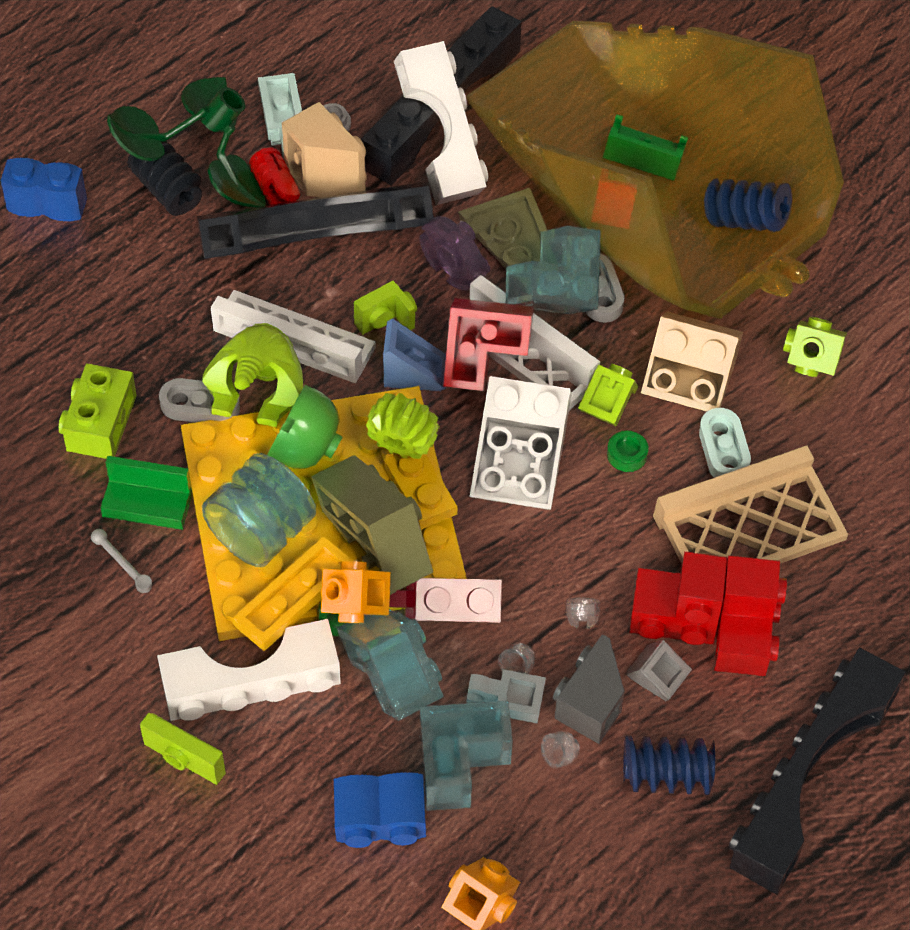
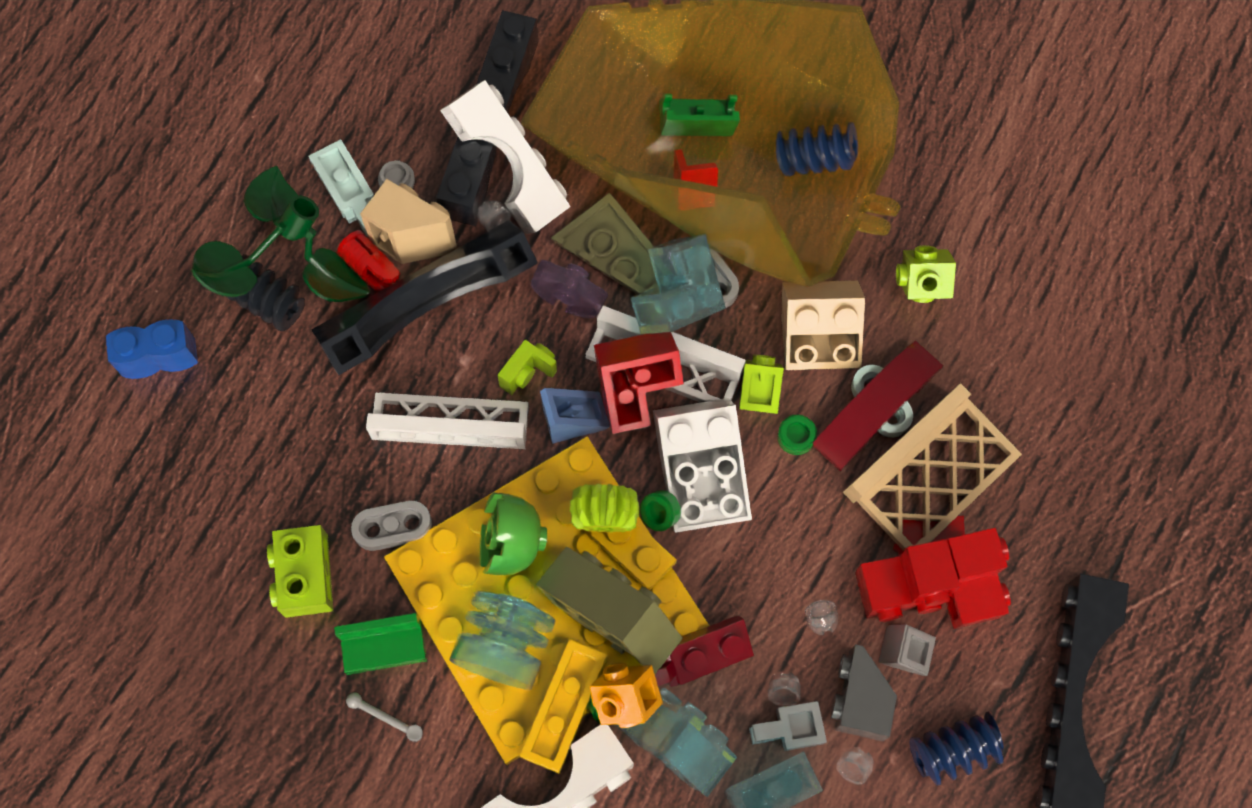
camera: 20 degrees left, 15 degrees up
(260, 353) = (433, 467): lime piece -> none
(410, 173) = (493, 214): none -> clear hinge
(462, 468) = (660, 510): none -> green tile
(716, 441) = (876, 404): none -> dark red slope

